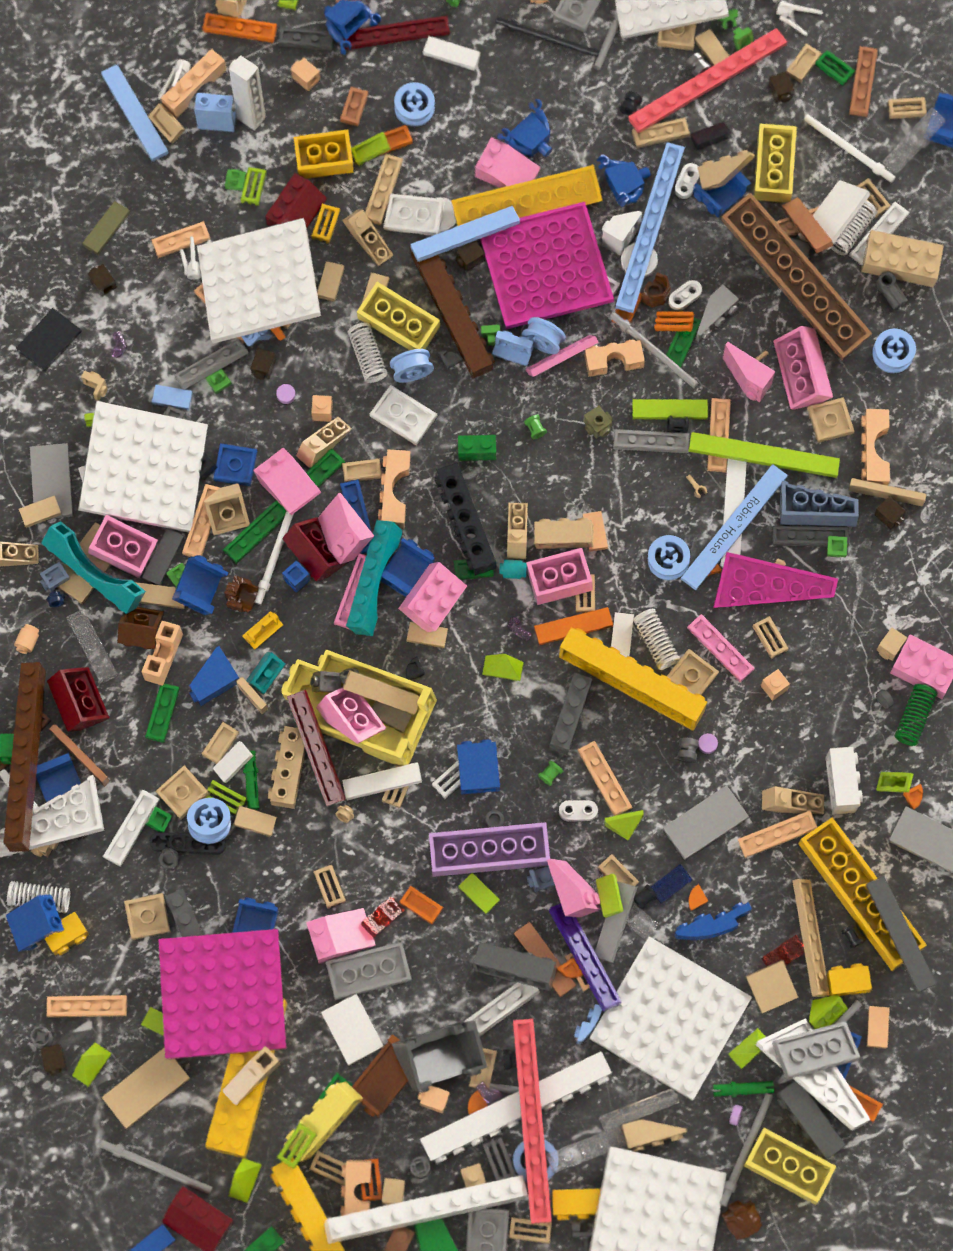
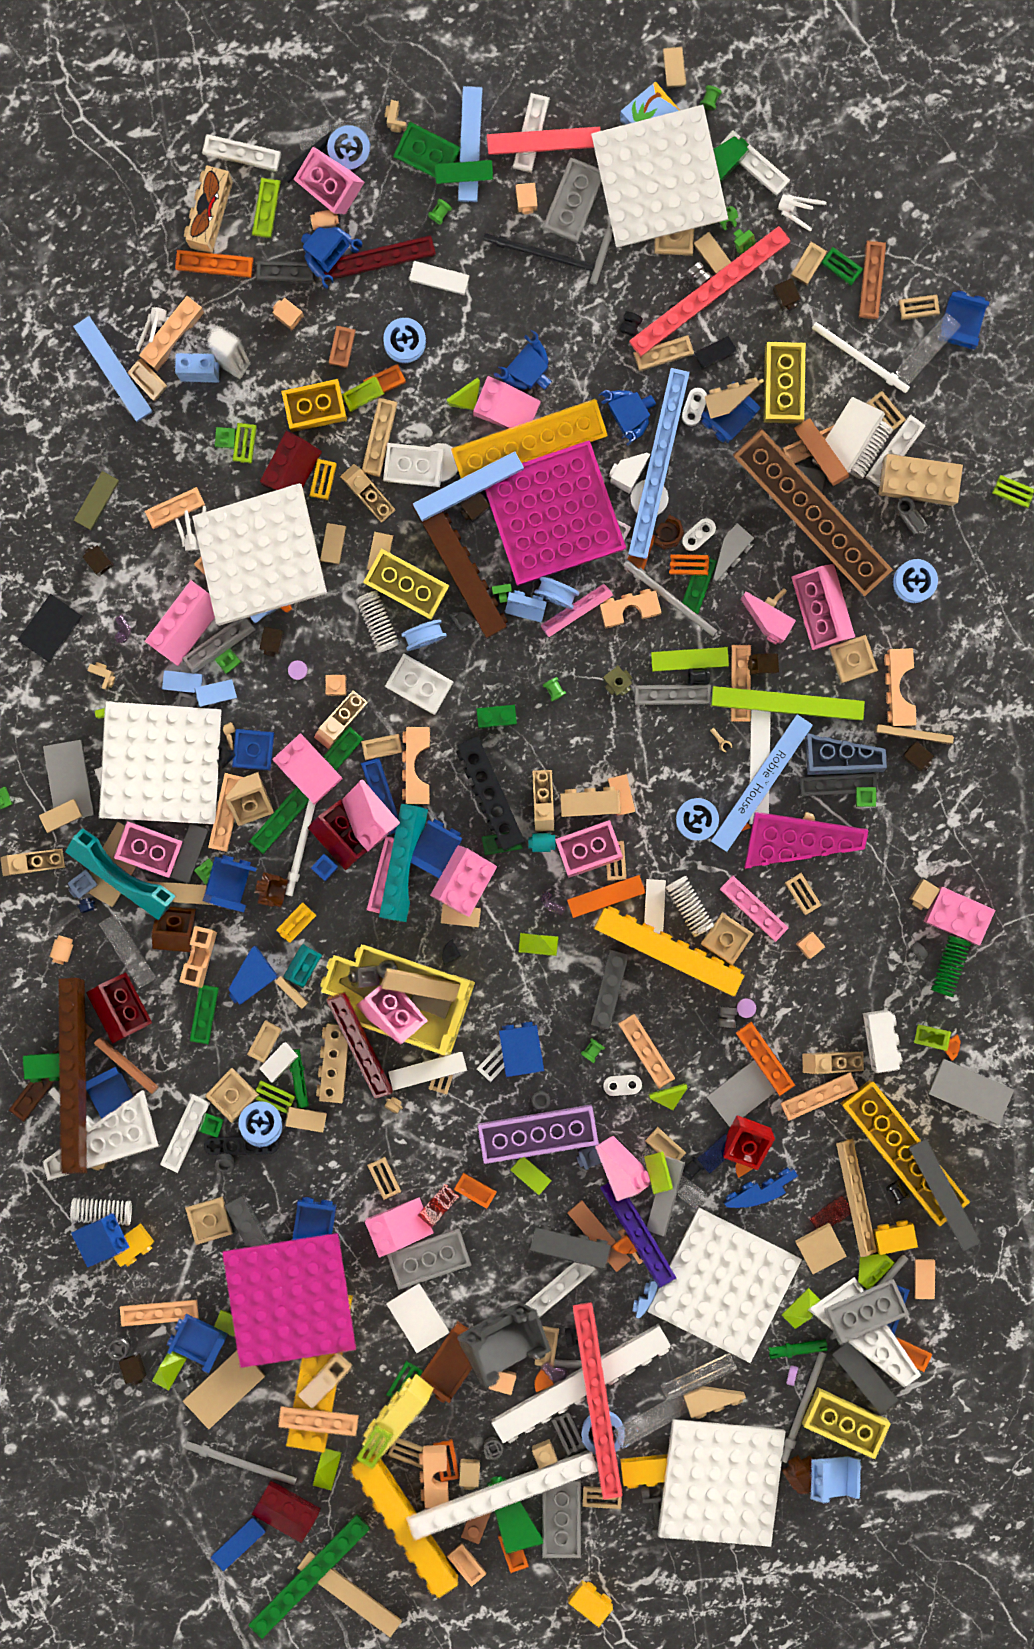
camera: 10 degrees left, 15 degrees up
(122, 1035) = (197, 1341): none -> blue panel
(178, 342) = (182, 623): none -> bright pink slope
(203, 408) = (215, 693): none -> light blue tile
(213, 443) = (228, 729): none -> tan hand
(241, 1120) = (318, 1421): none -> light nougat tile
(468, 157) = (466, 397): none -> lime slope
(702, 873) = (748, 1142): none -> red slope
(724, 792) = (765, 1058): none -> orange tile
(742, 416) = (763, 664): none -> dark brown brick
(776, 1223) = (835, 1478): none -> light blue panel

